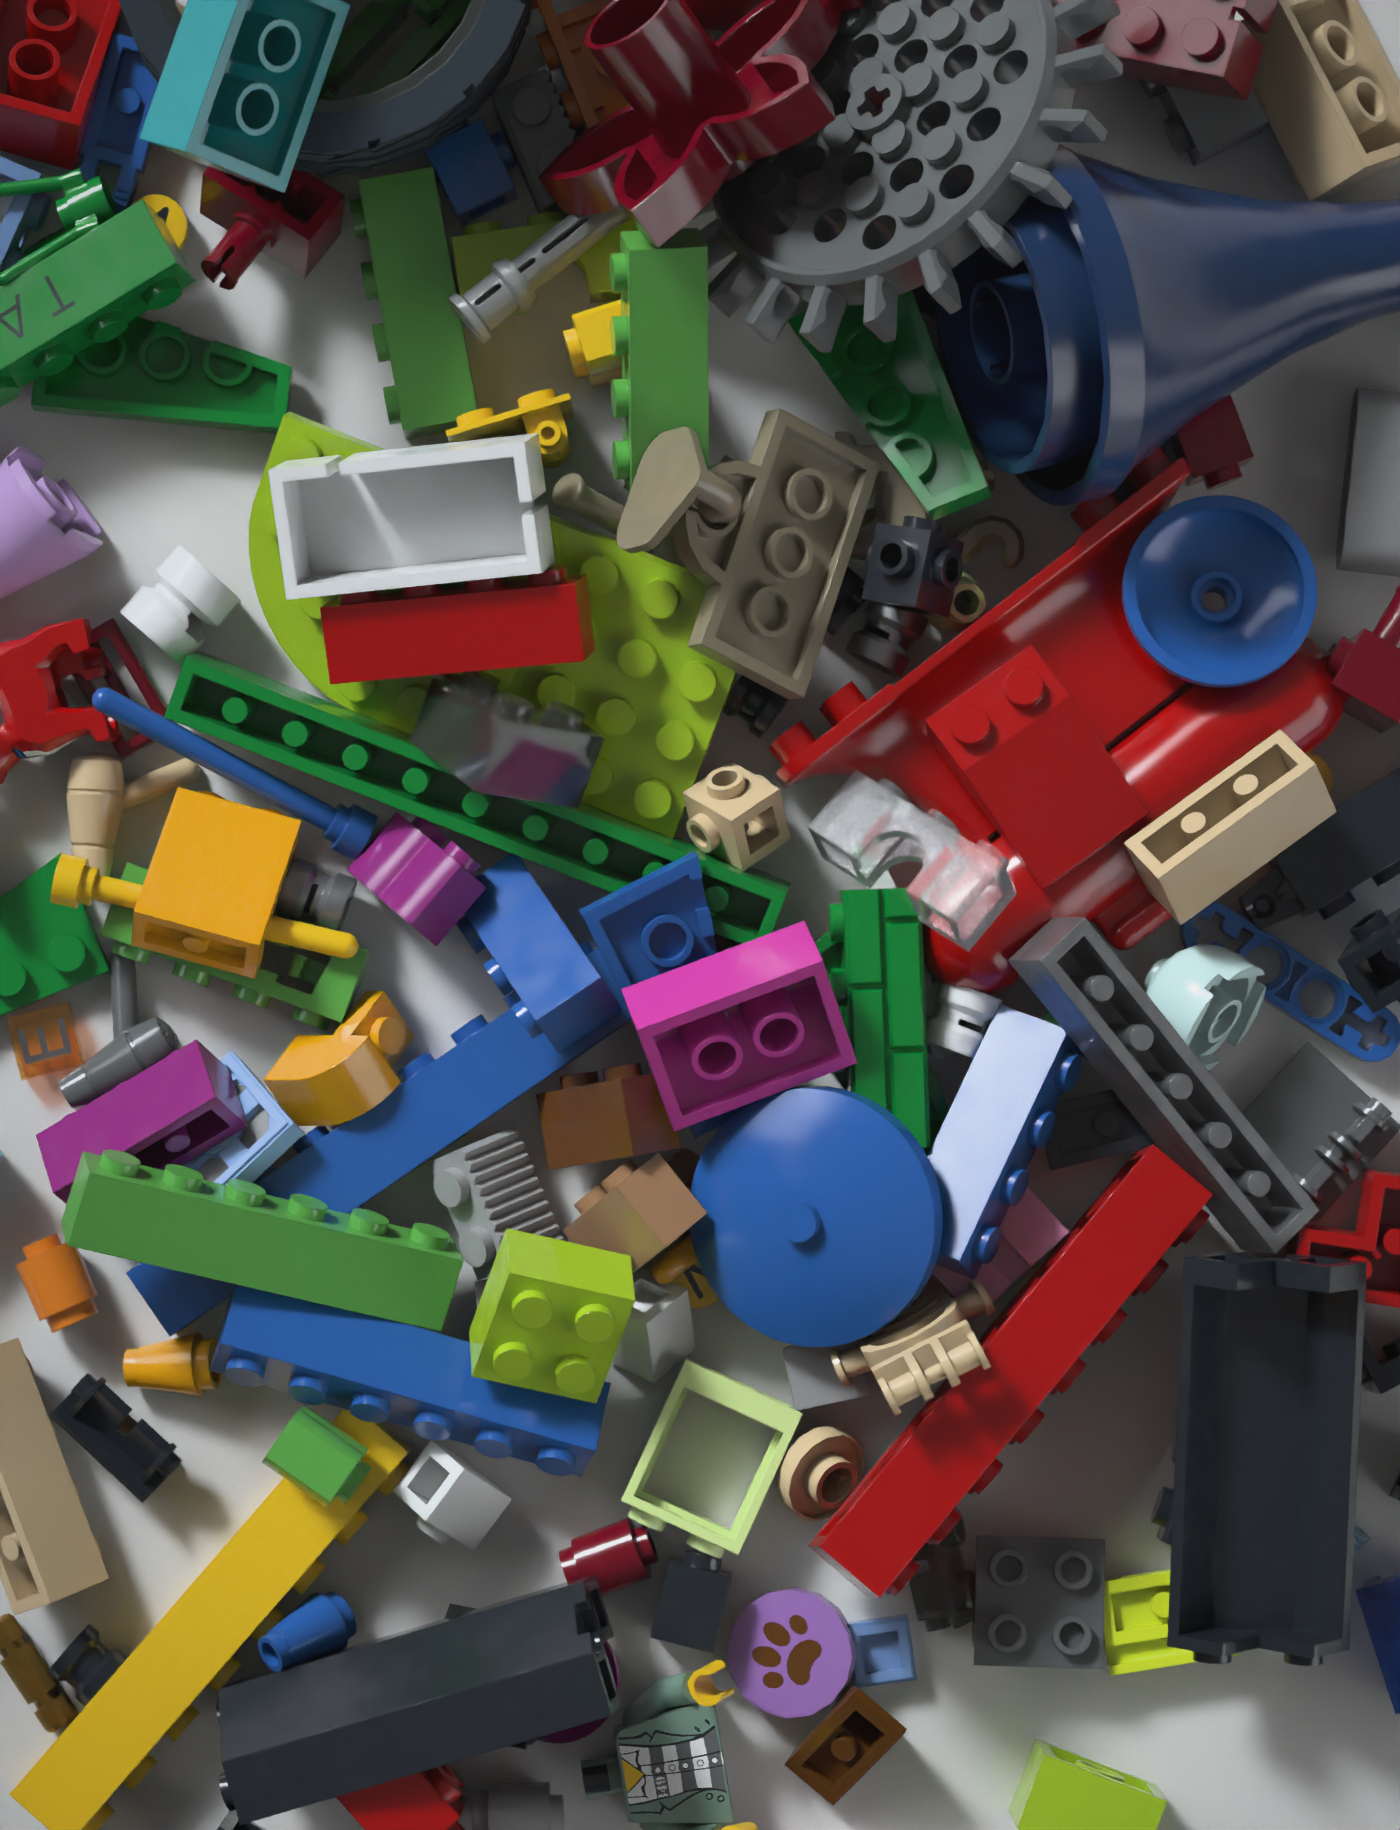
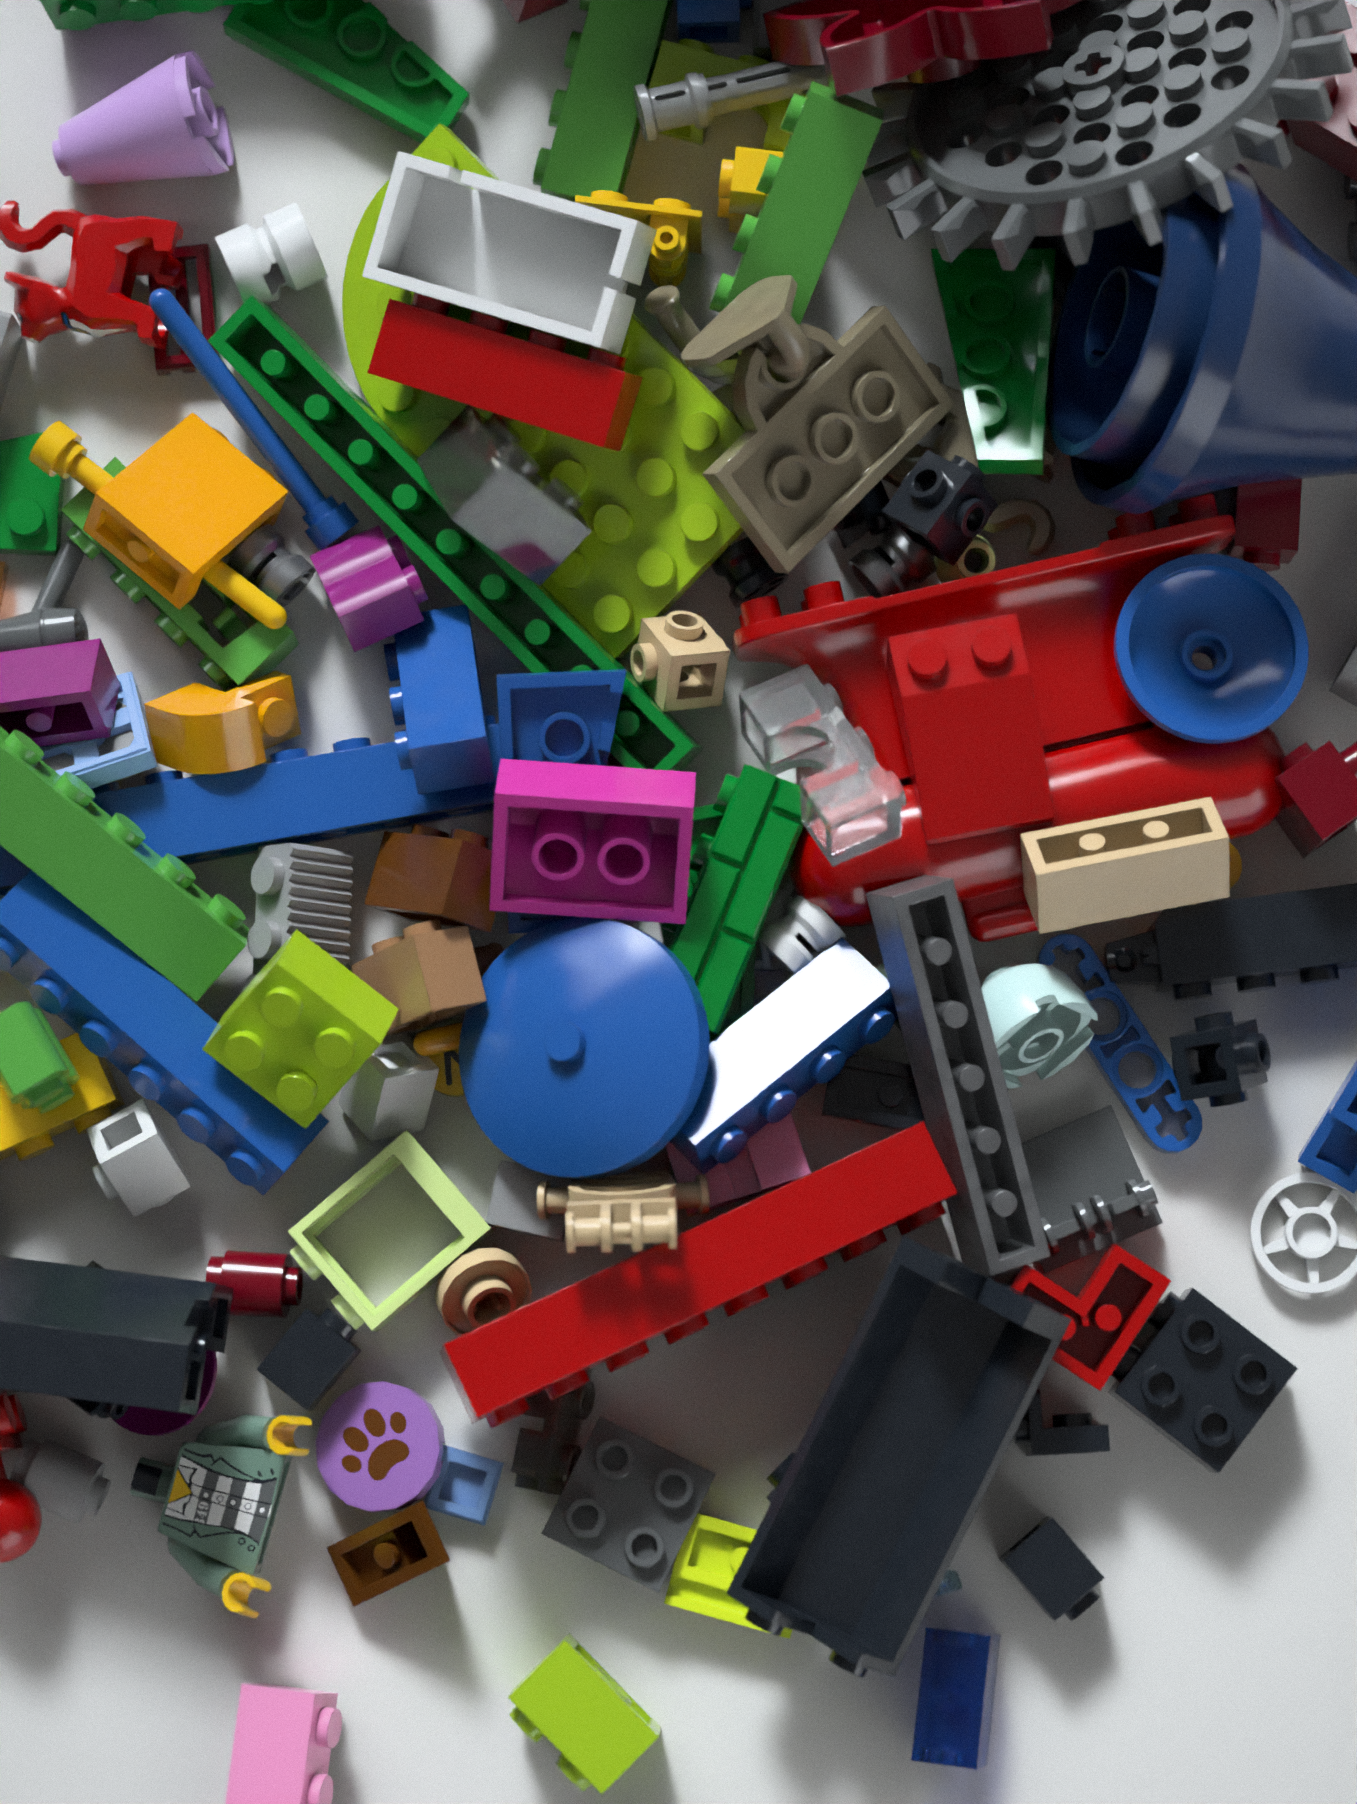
camera: 30 degrees right, 5 degrees down
(100, 796) = (121, 393): tan piece -> none

